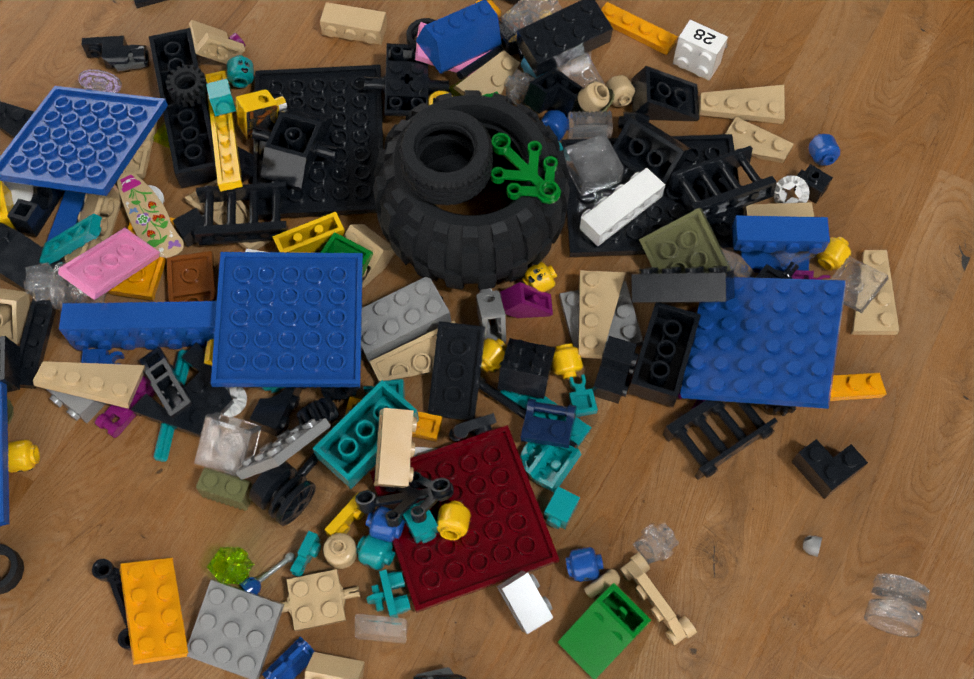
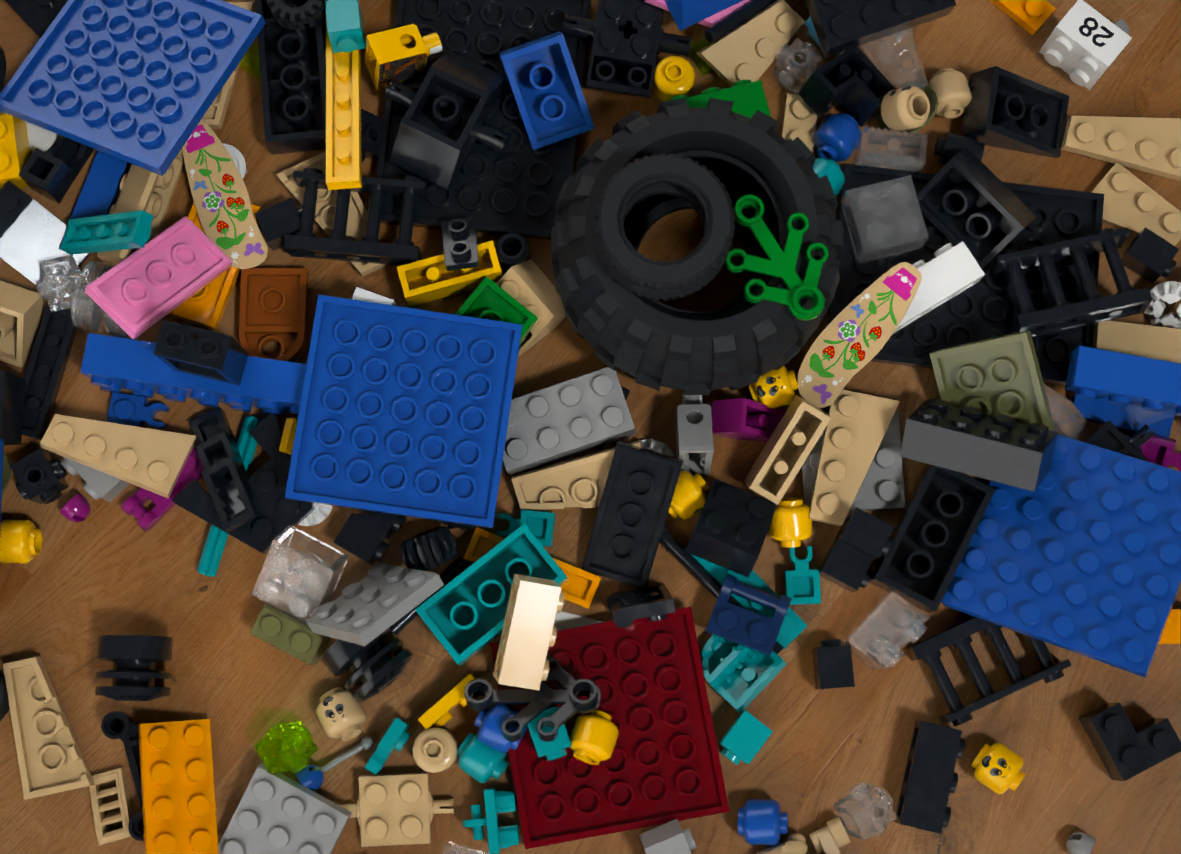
camera: 10 degrees right, 15 degrees up
(34, 409) = (40, 477): none -> black brick
(48, 588) = (43, 737): none -> tan wing
(62, 429) = (76, 509): none -> magenta hinge
(112, 524) = (133, 666): none -> black wheel
(113, 650) = (101, 822): none -> tan slope
(142, 299) = (210, 356): none -> black window
(268, 537) = (340, 714): none -> tan head
(313, 215) = (460, 243): none -> black bracket
(349, 215) = (512, 243): none -> black brick
(358, 119) = (546, 90): none -> blue slope
(556, 311) = (787, 449): none -> tan brick
(588, 233) = (856, 335): none -> tan sticker
(614, 450) = (833, 665): none -> black brick
(646, 420) = (886, 631): none -> clear slope
(696, 514) = (929, 777): none -> black brick
(743, 500) = (998, 768): none -> yellow head
(770, 164) = (1150, 256): none -> black brick

